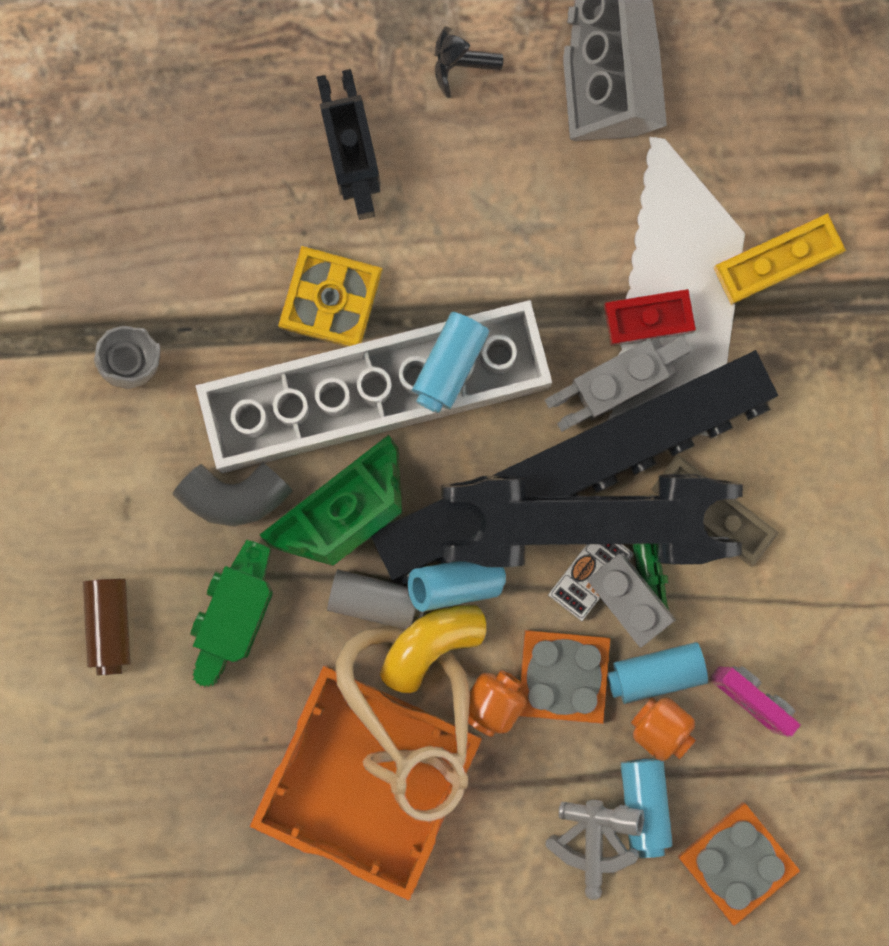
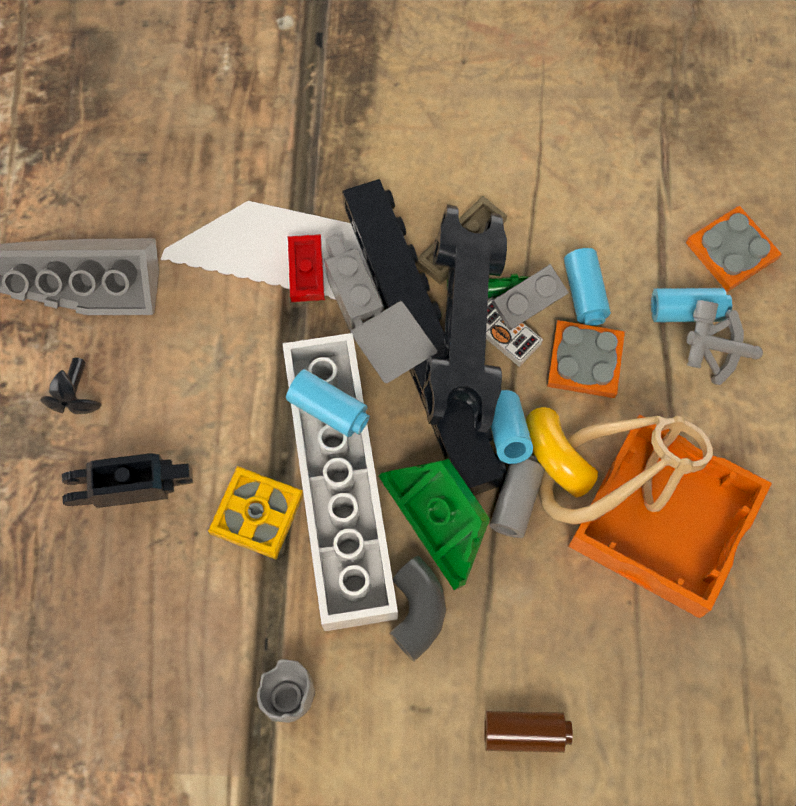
camera: 80 degrees left, 15 degrees down
(233, 614) = (523, 616): green hinge -> none
(495, 703) = (606, 405): orange head -> none
(551, 434) = (393, 342): none -> light grey sticker
(664, 729) = (631, 286): orange head -> none
(767, 709) = (612, 217): dark pink piece -> none
(779, 259) = (272, 177): yellow tile -> none

